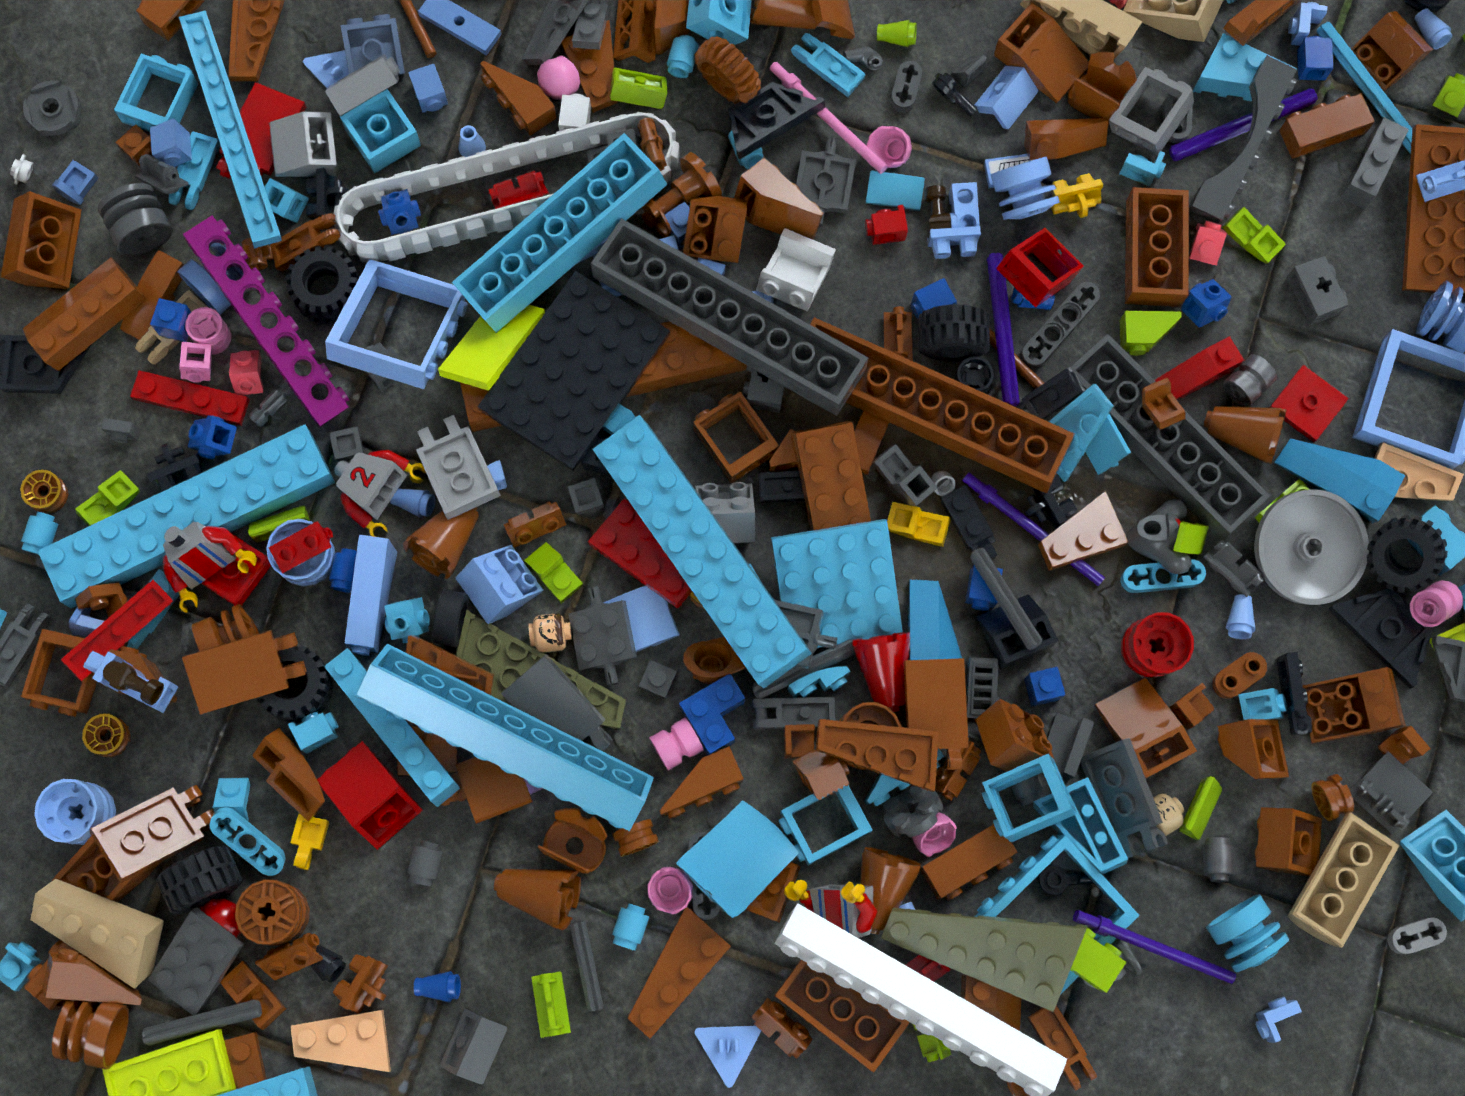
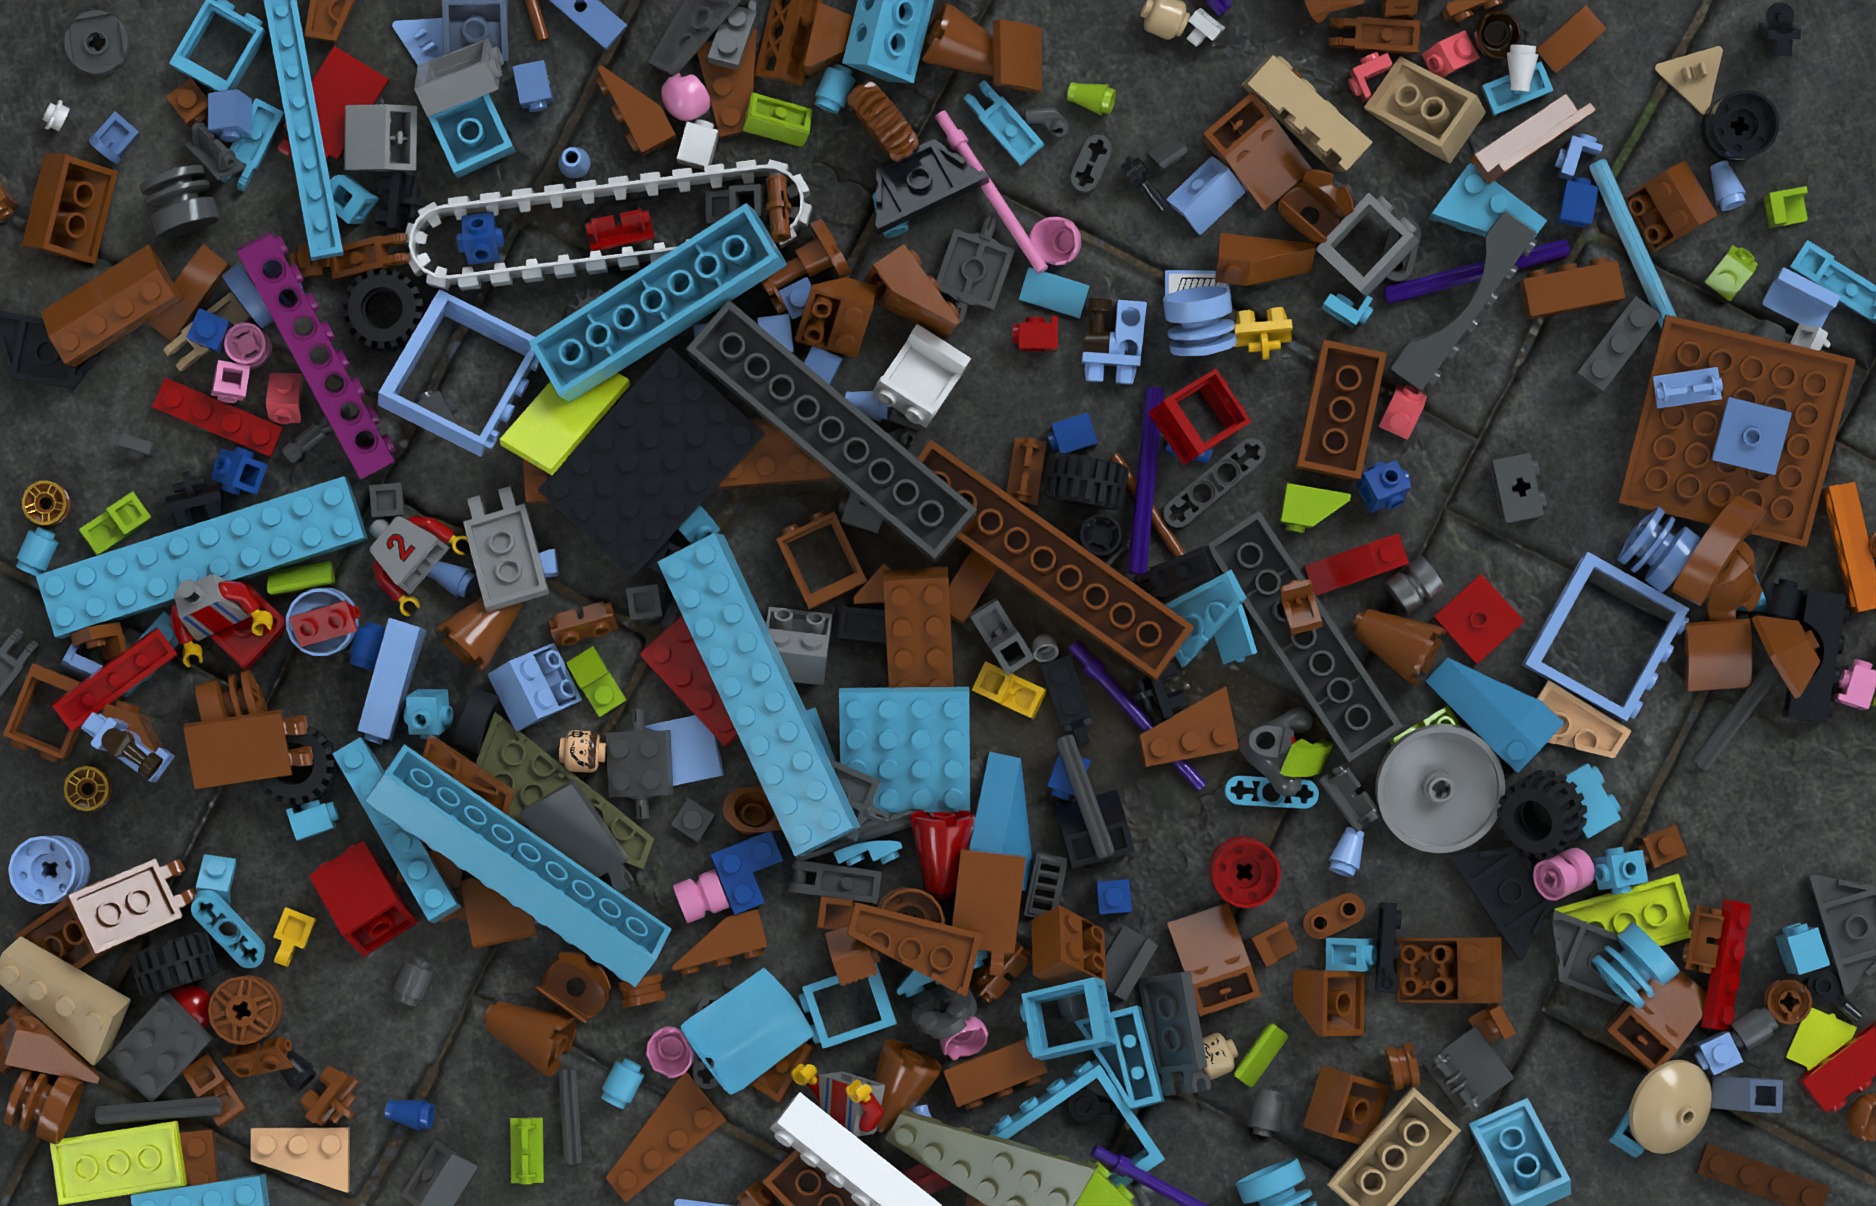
camera: 10 degrees right, 10 degrees up
(290, 773) = (282, 863): dark orange slope -> none
(1252, 236) = (1459, 409): lime slope -> none

